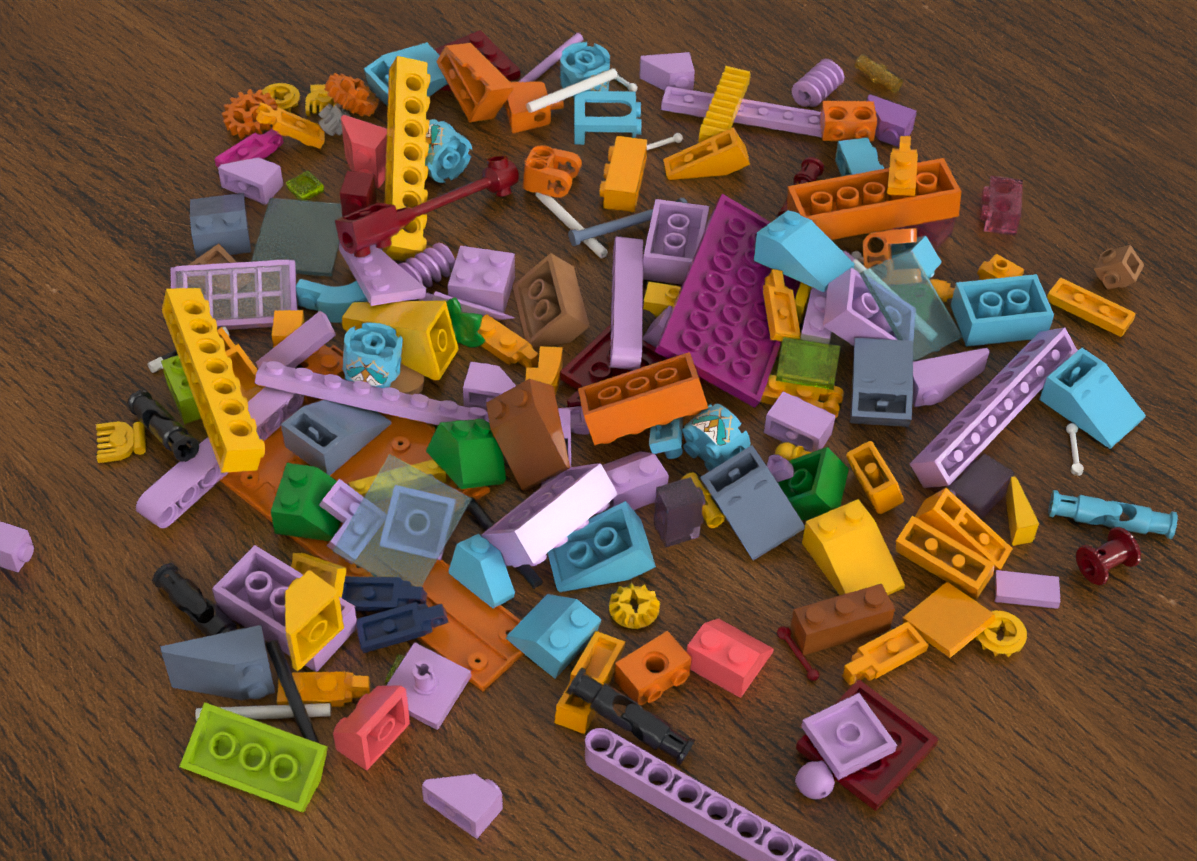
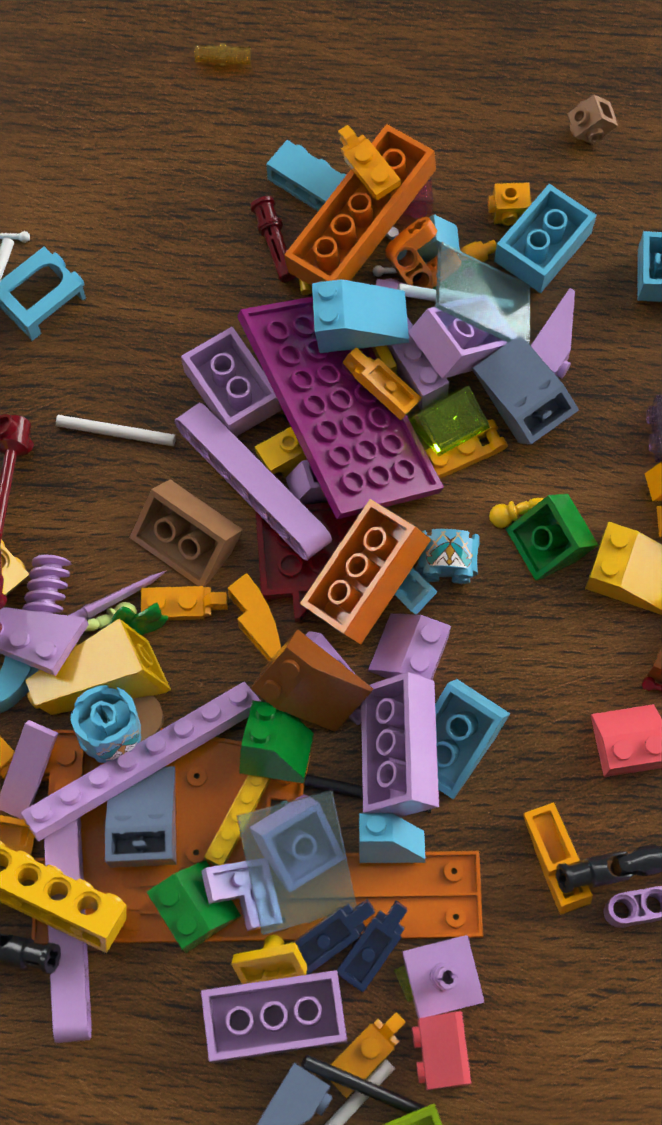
camera: 40 degrees left, 20 degrees up
(189, 599) = (186, 1077): black piece -> none
(311, 617) = (331, 1024): yellow slope -> none
(464, 801) = (571, 1044): lavender slope -> none
(483, 277) = (106, 557): lavender brick -> none
(484, 383) = (221, 660): lavender slope -> none
(546, 166) = (44, 407): orange piece -> none
(555, 632) = (494, 842): medium azure slope -> none
(576, 237) = (141, 444): sand blue bar -> none
(578, 422) = (312, 623): lavender tile -> none
(622, 610) = (525, 774): yellow gear -> none
(623, 173) = (114, 341): light orange brick -> none
(660, 654) = (582, 822): orange brick -> none
(668, 70) = (45, 195): lavender slope -> none
(676, 138) = (95, 302): white hinge -> none
(678, 511) = (487, 651): clear purple brick -> none
(709, 158) = (168, 267): light orange slope -> none
(710, 511) = (463, 611): yellow pin -> none
(725, 102) = (135, 201): yellow gear -> none
(750, 112) = (167, 180): lavender plate -> none
(752, 502) = (532, 592): sand blue slope -> none
(780, 468) = (513, 538): lavender tile -> none
(799, 423) = (490, 481): lavender brick -> none
(817, 83) = (185, 107): lavender piece -> none
(848, 120) = (252, 131): orange brick -> none
(875, 477) = (595, 486): light orange brick -> none
(892, 120) = (279, 103): medium lavender slope -> none
(992, 409) = (621, 341): lavender brick -> none
(1002, 205) = (452, 121): clear pink brick -> none
(1090, 307) = (600, 175): light orange plate -> none

